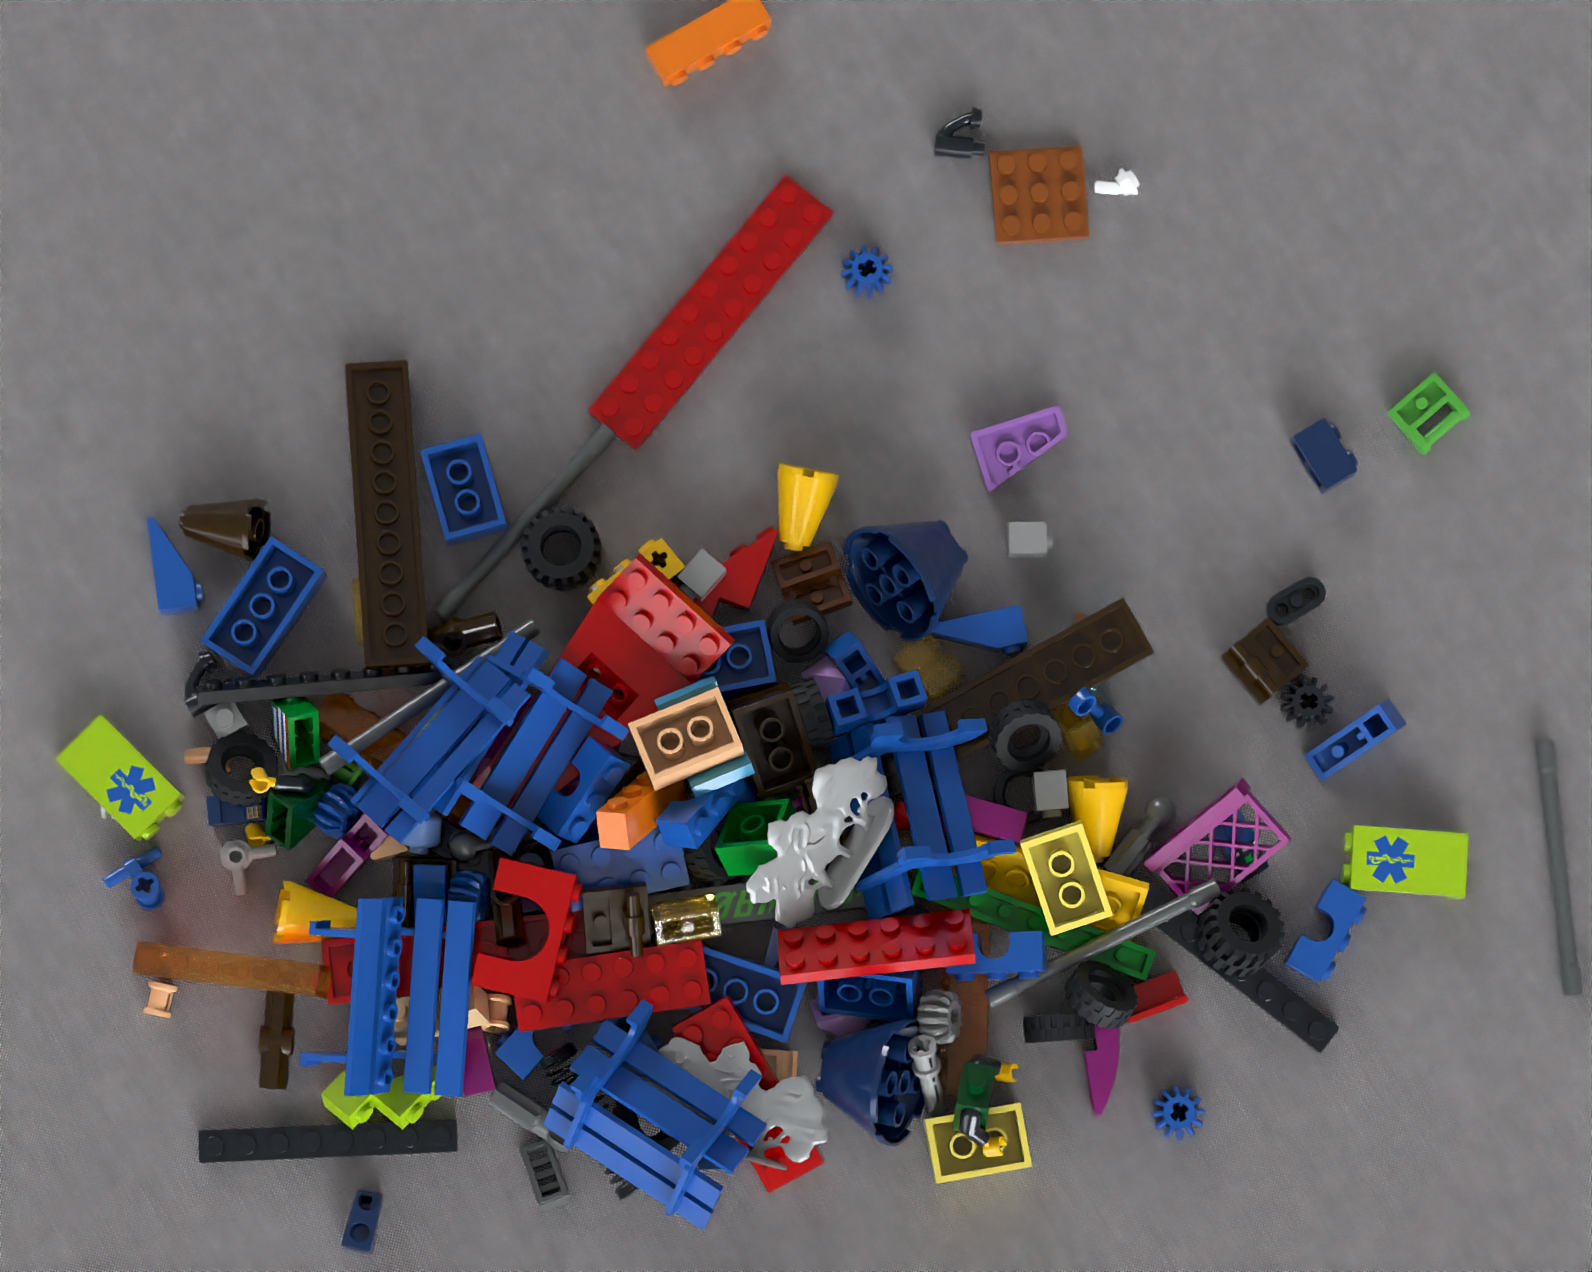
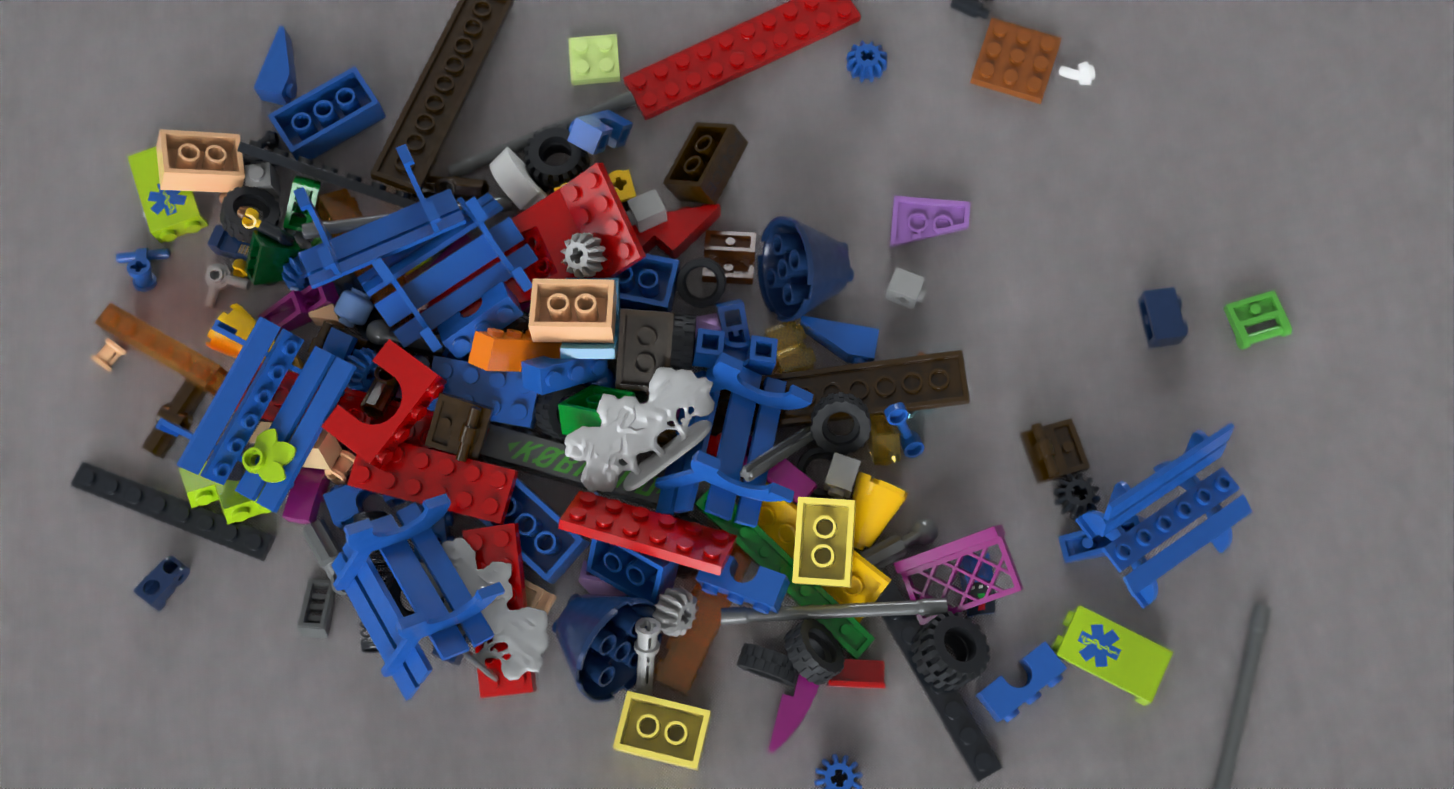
camera: 30 degrees right, 10 degrees down
(152, 731) = (199, 161): none -> light nougat brick
(229, 526) = (334, 52): dark brown cone -> none
(431, 1037) = (272, 457): none -> lime plate
(464, 489) = (507, 93): blue brick -> none
(533, 601) = (514, 179): none -> white arch
(540, 399) = (594, 59): none -> yellowish green plate
(601, 499) = (599, 129): none -> blue arch
(676, 671) = (583, 255): none -> light grey gear
(685, 919) = (512, 451): clear yellow brick -> none
(739, 484) = (705, 162): none -> dark brown brick
(802, 503) = (747, 194): yellow cone -> none
(974, 799) = (777, 454): none -> dark grey axle
(975, 1097) = (672, 690): torso -> none
(1294, 601) = (1096, 416): black plate -> none
(1438, 659) = (1200, 498): none -> blue piece

